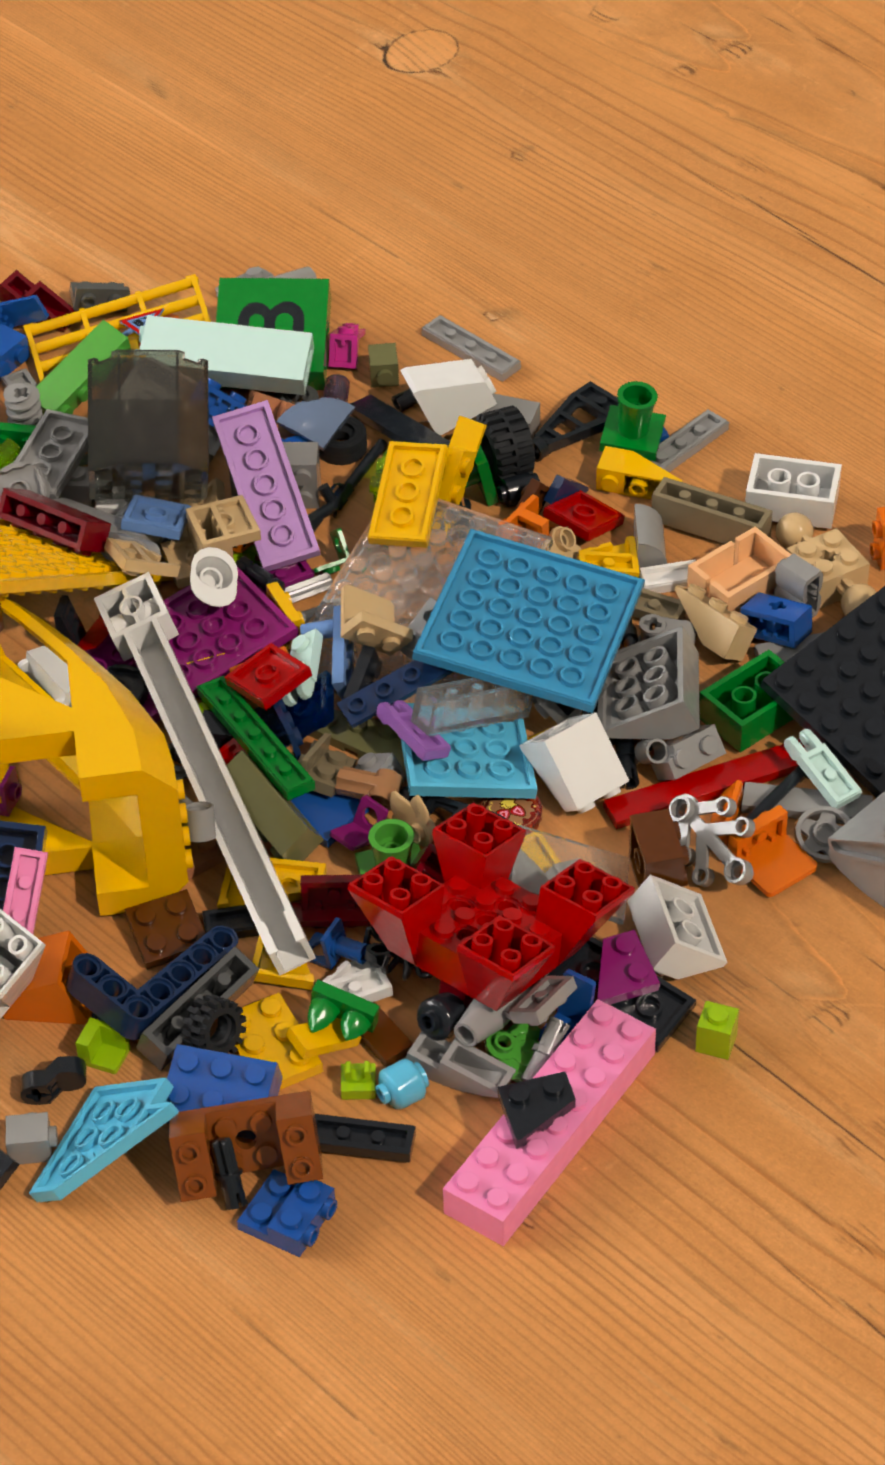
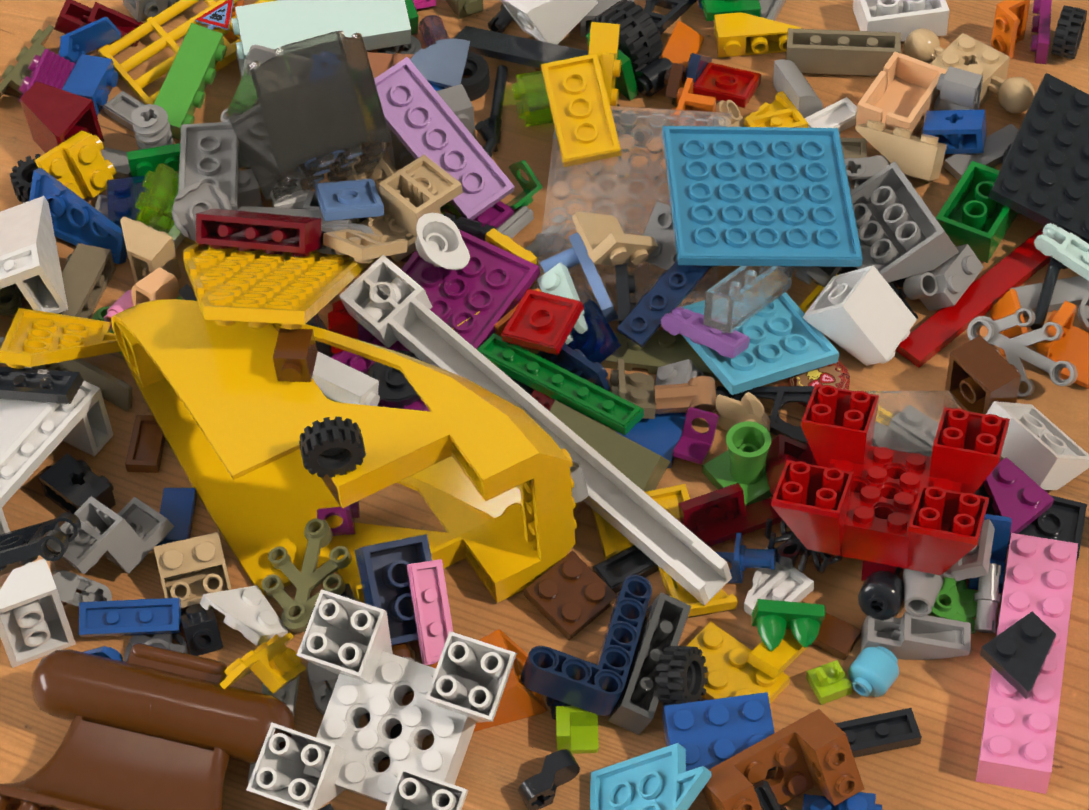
camera: 20 degrees left, 5 degrees up
(566, 462) = (682, 44): none -> orange slope

